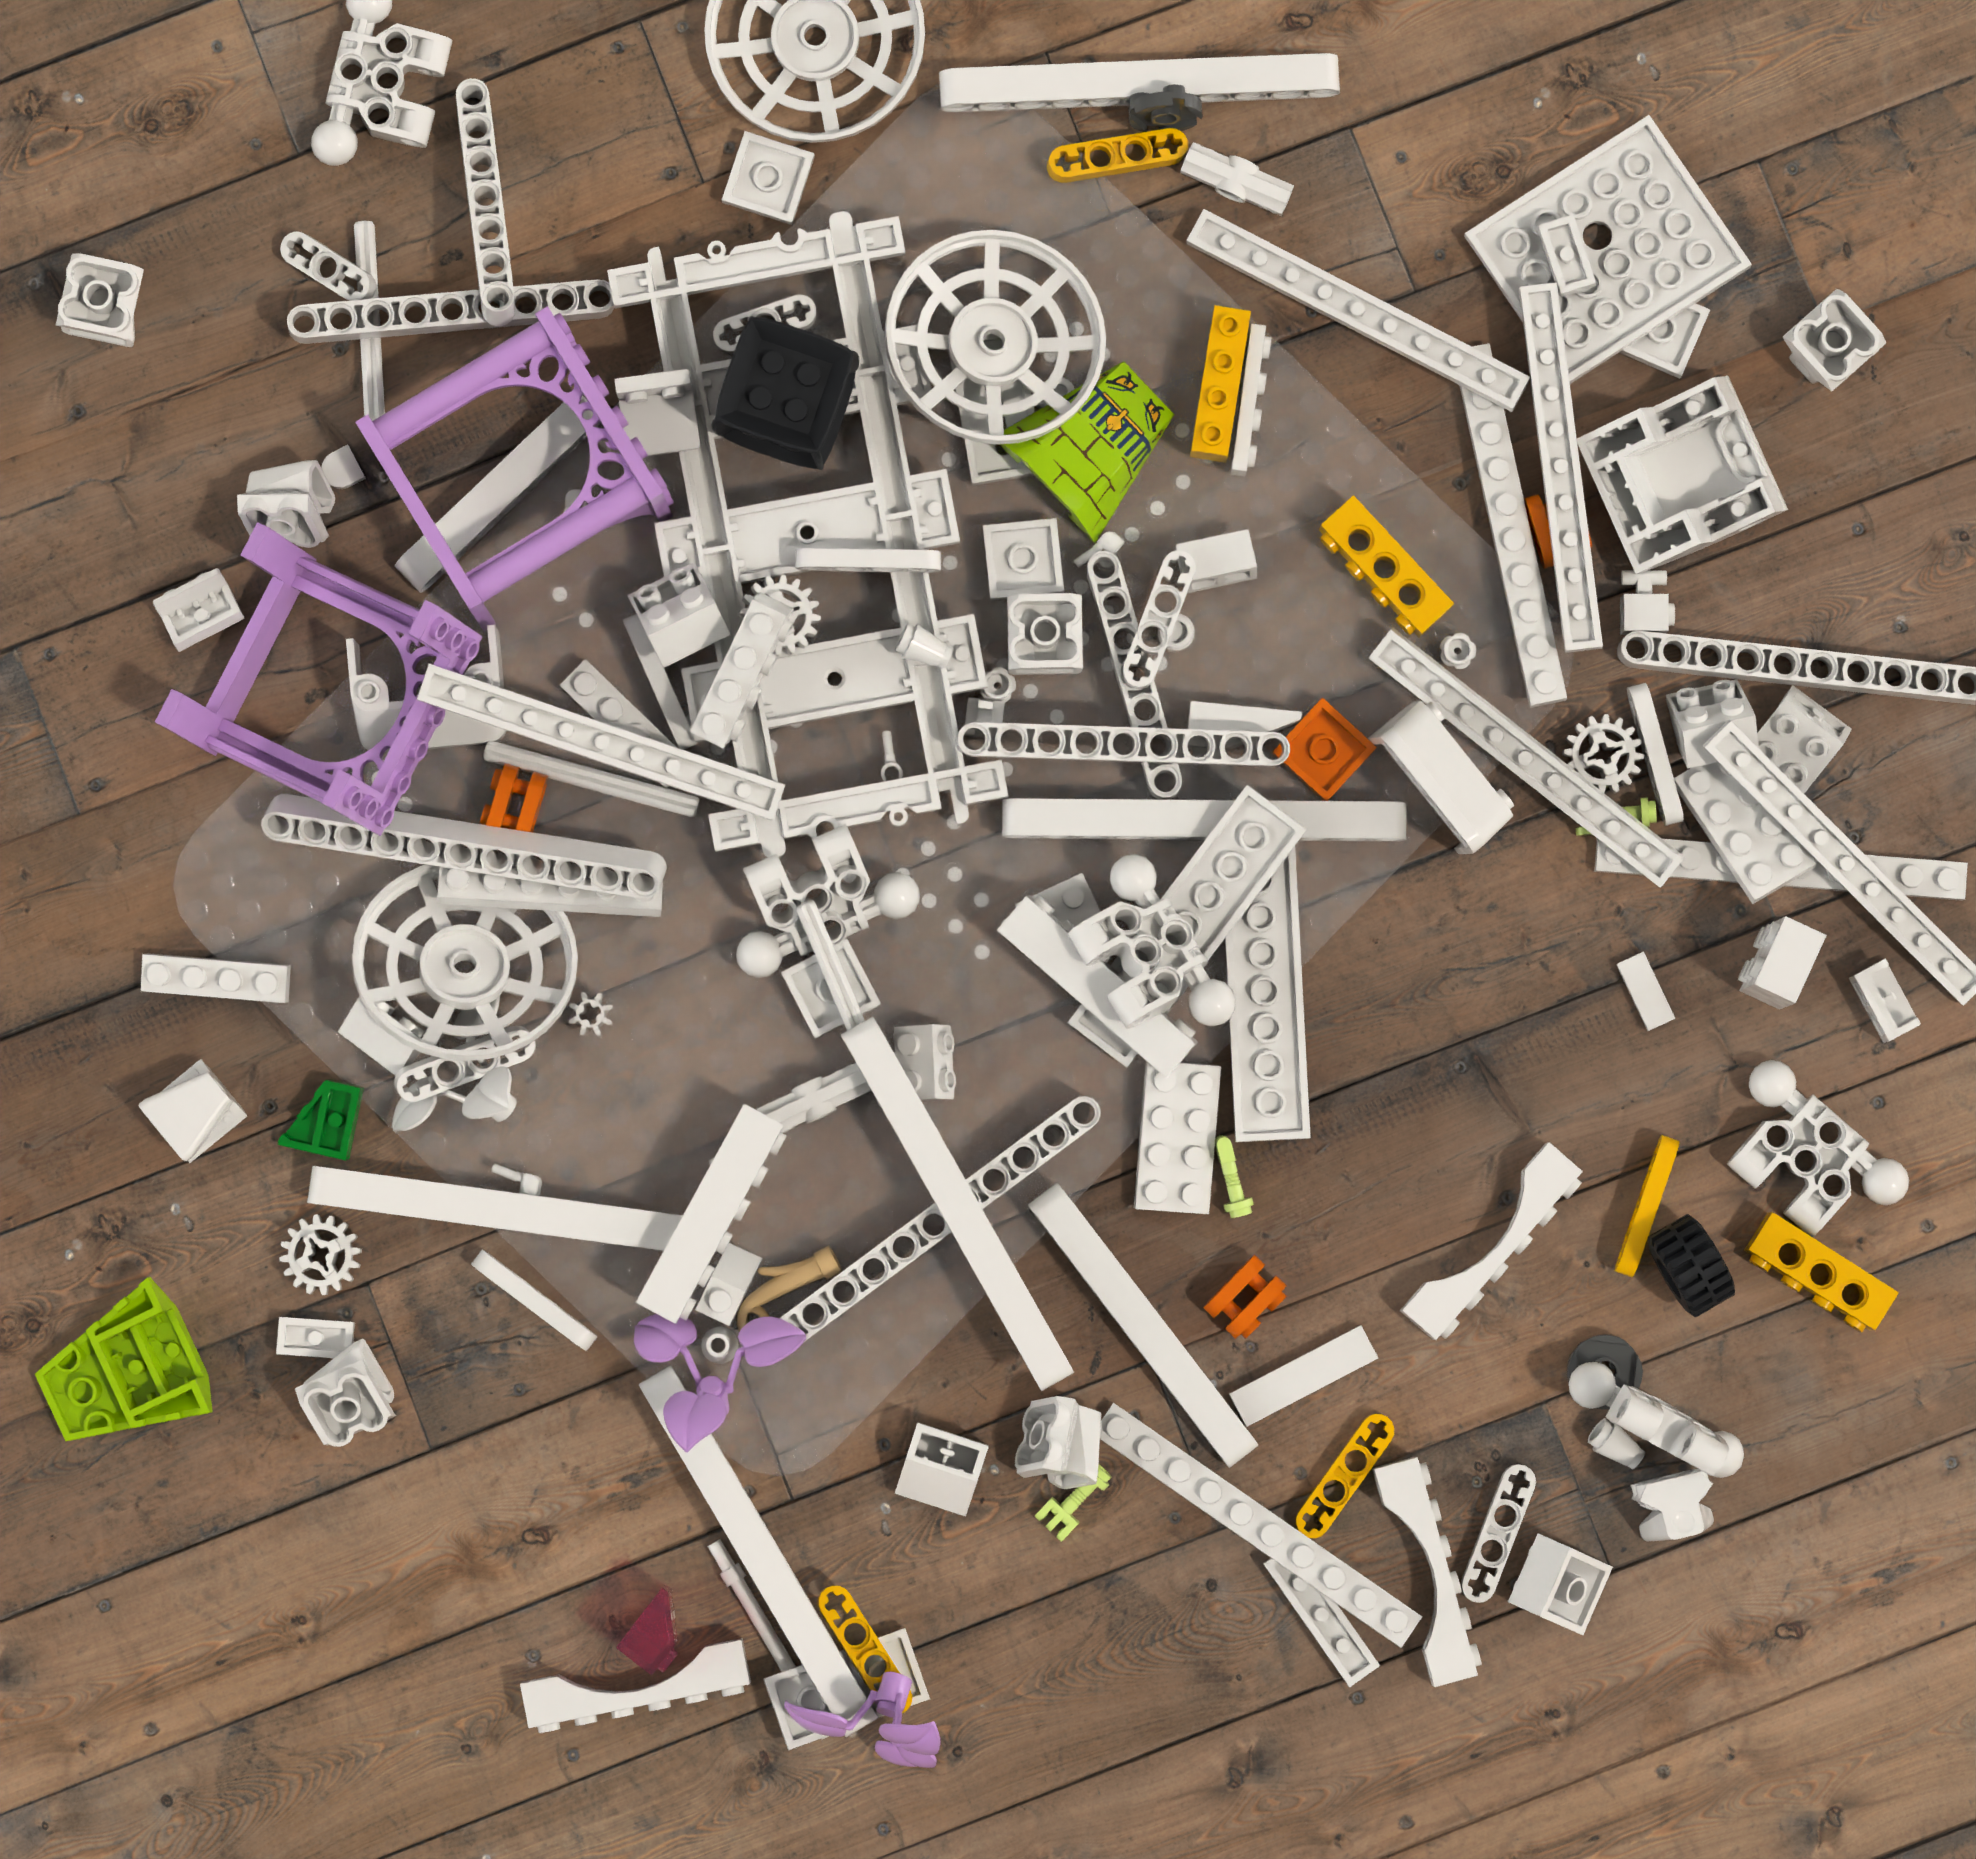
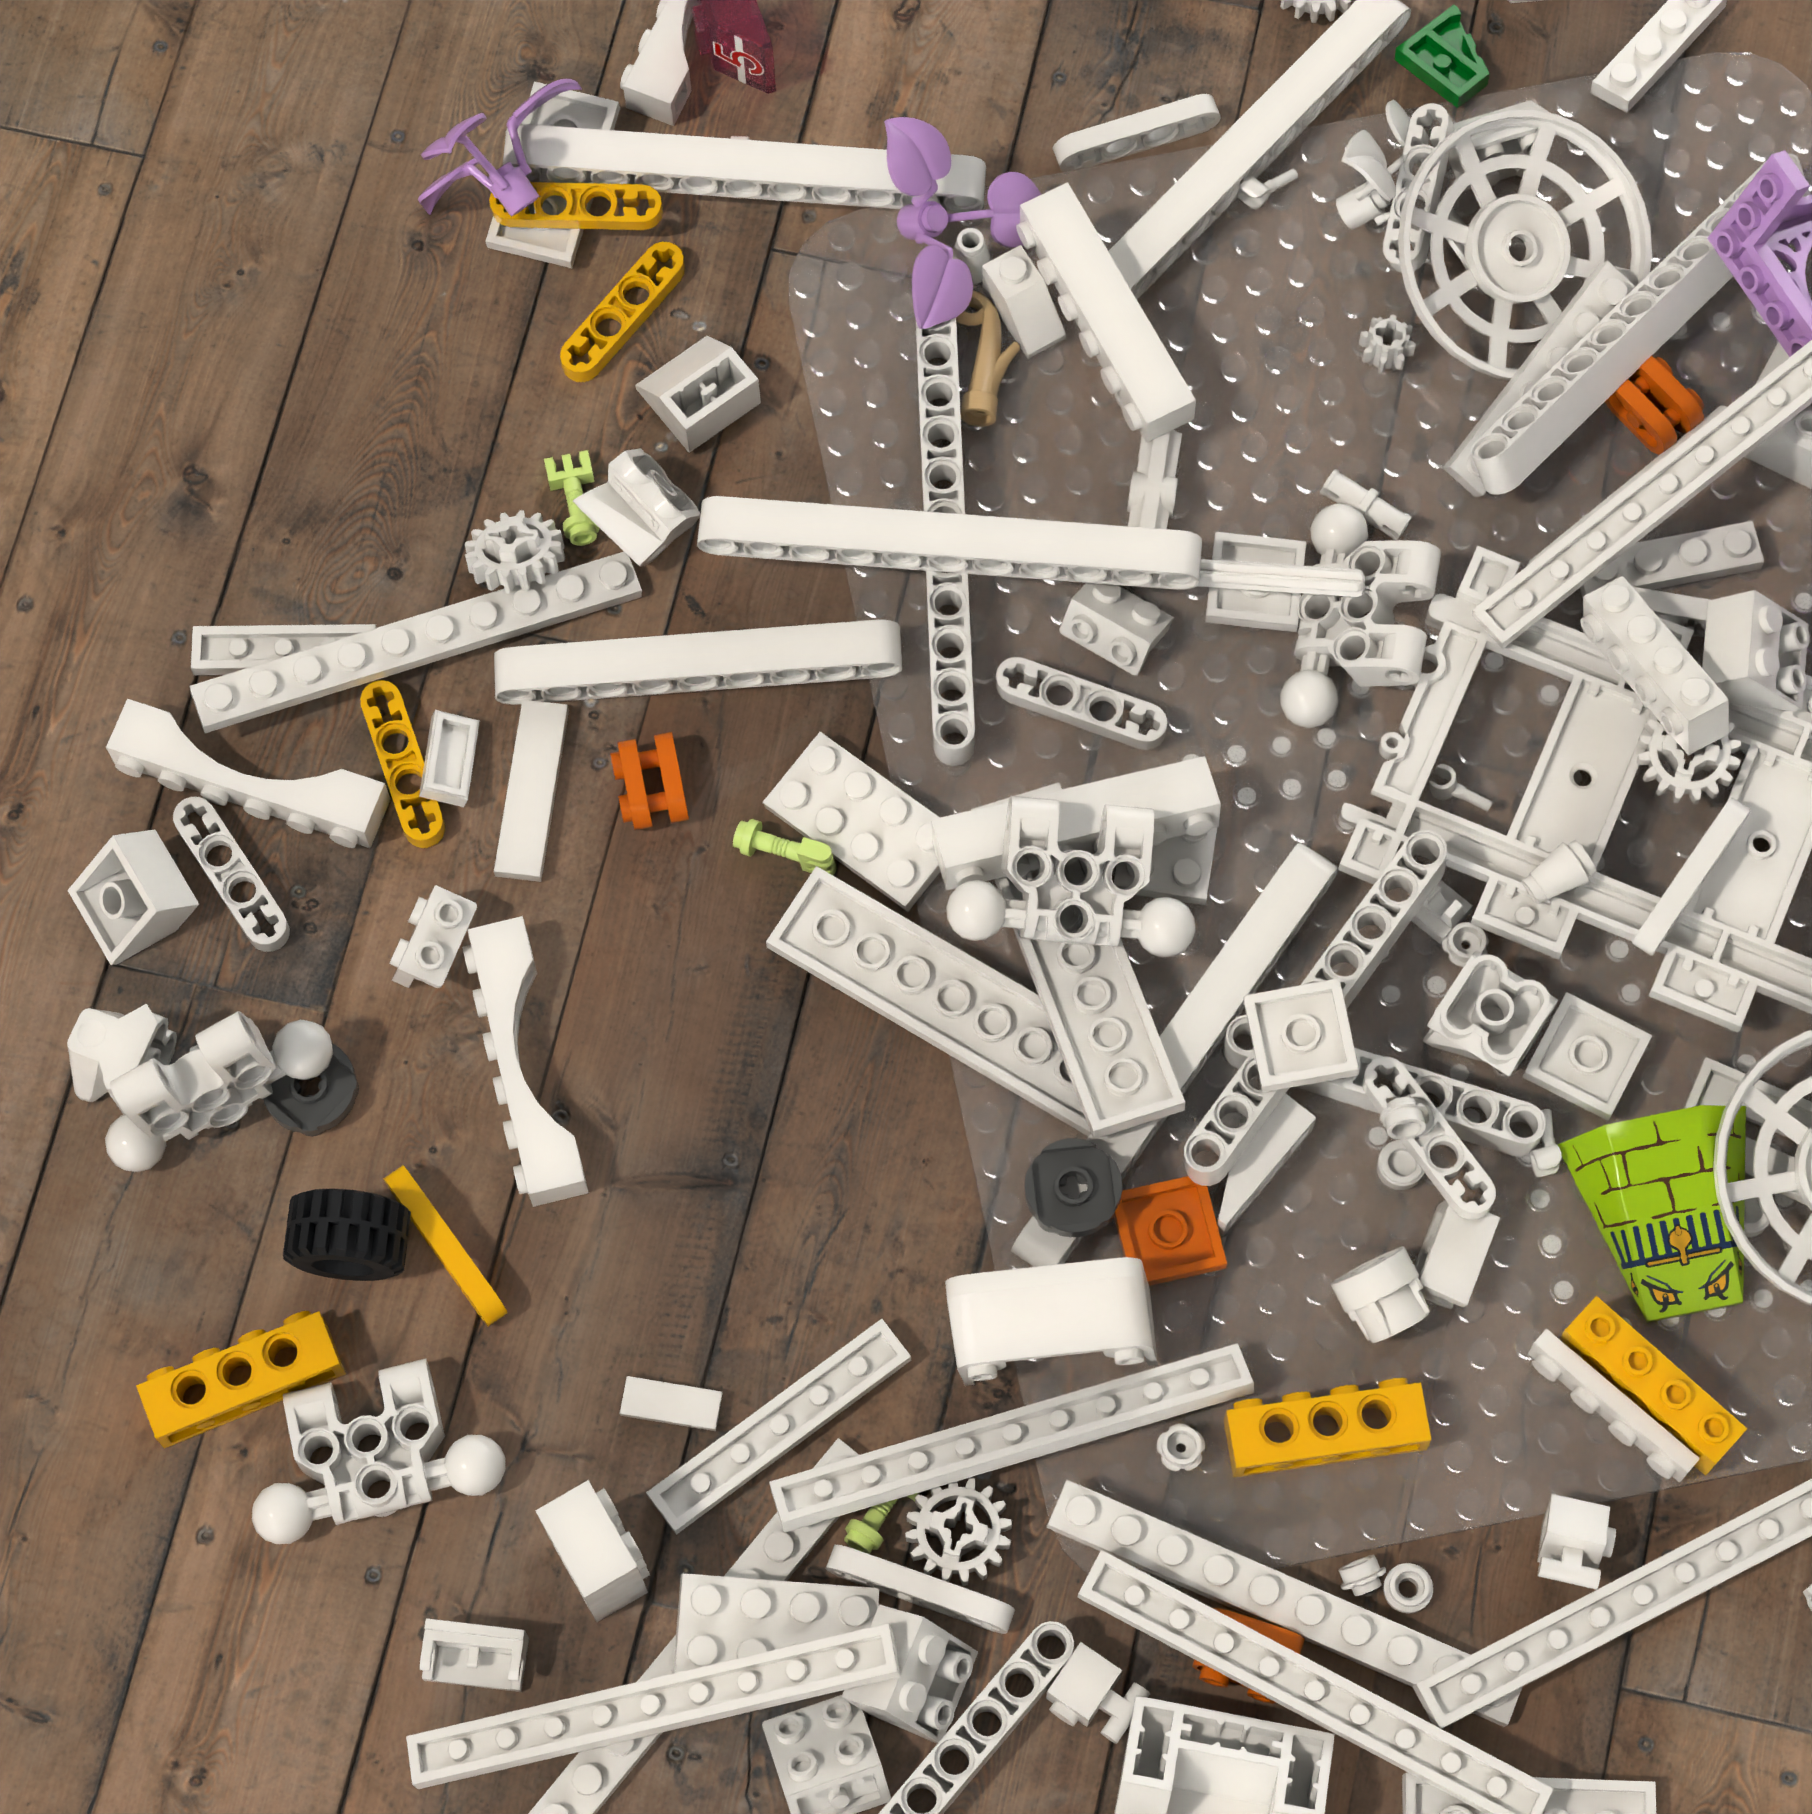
camera: 130 degrees right, 15 degrees down
(723, 951) = (1374, 509): none -> white pin
(914, 1561) = (627, 314): none -> yellow beam
(1000, 1047) = (1078, 709): none -> white beam
(1152, 1521) = (514, 551): none -> white gear
(1160, 735) = (1301, 1035): none -> white plate
(1164, 639) = (1404, 1118): none -> white plate
(1277, 586) = (1382, 1295): none -> white piece
(1322, 1444) = (449, 758): none -> white tile
(1347, 372) = (1574, 1541): none -> white brick
(1349, 800) = (1090, 1166): none -> dark grey plate
(1453, 449) = (1418, 1577): none -> white plate
(1455, 1360) = (435, 940): none -> white bracket
(1457, 490) = (1362, 1575): none -> white plate
(1614, 912) = (778, 1426): none -> white plate

